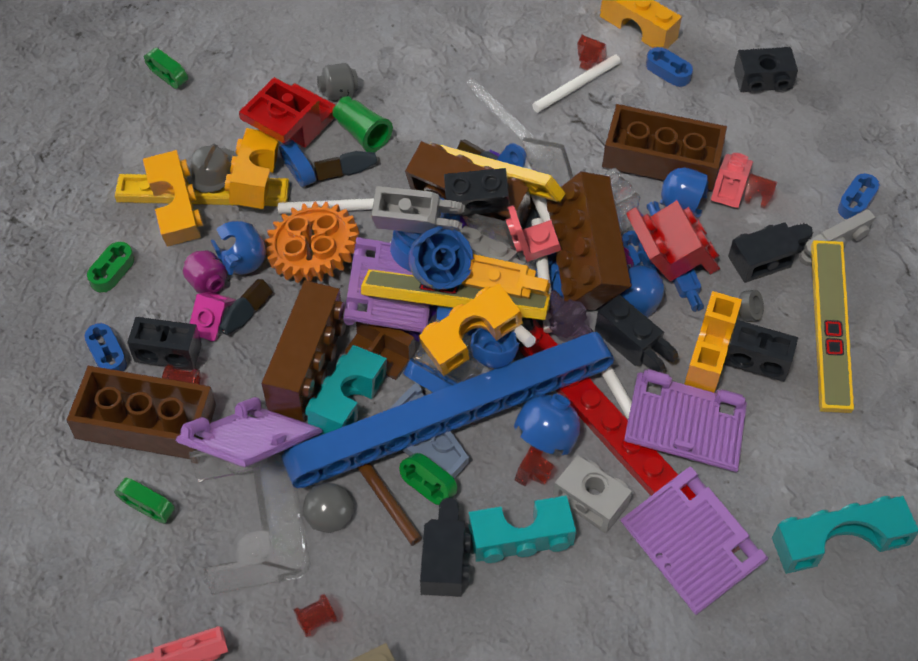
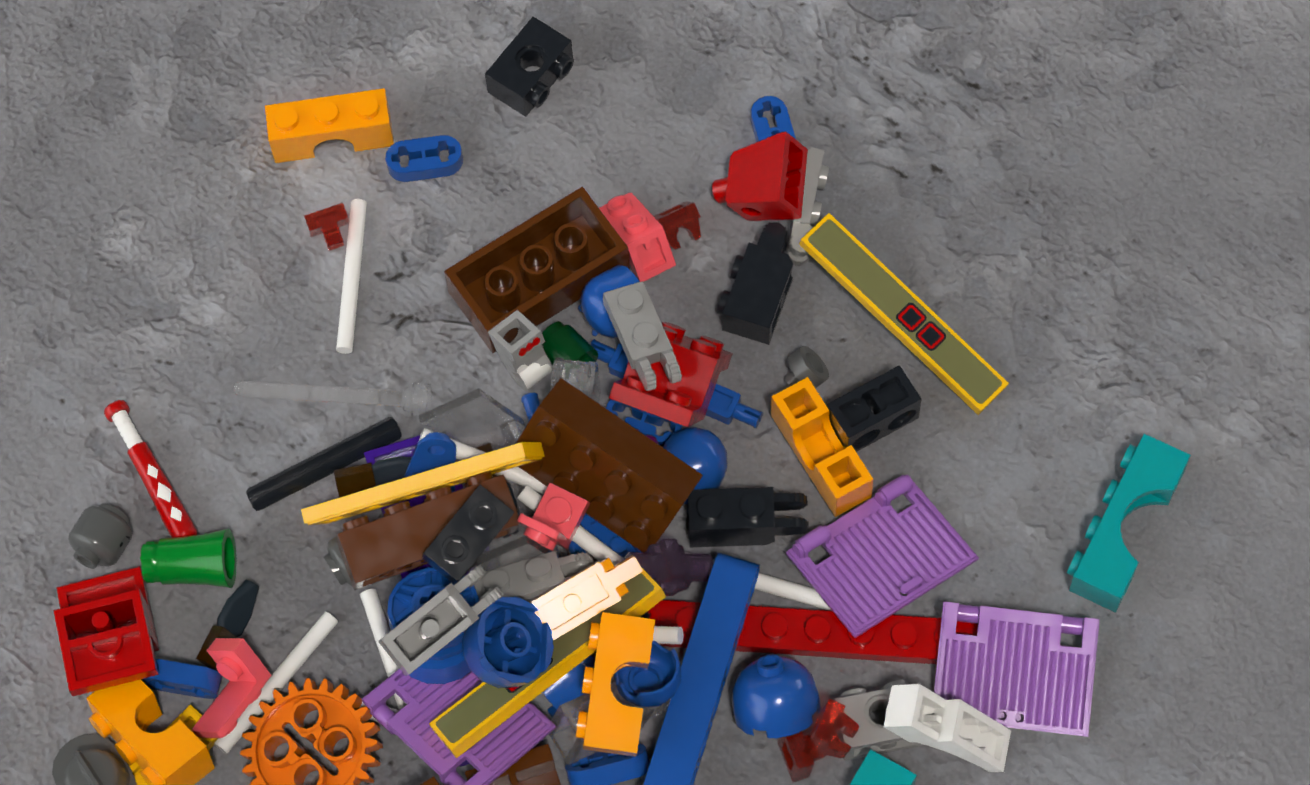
camera: 45 degrees left, 10 degrees up
(324, 177) = (246, 678): none -> coral bracket
(388, 85) = (160, 490): none -> red piece
(452, 136) = (323, 464): none -> black axle
(554, 458) = (825, 731): none -> clear red tile
(612, 161) = (525, 354): none -> light grey leg
(620, 524) = (947, 726): none -> white slope
(643, 186) = (567, 343): none -> dark green brick
(676, 198) = (641, 333): none -> light grey hinge
(828, 203) = (765, 179): none -> red torso

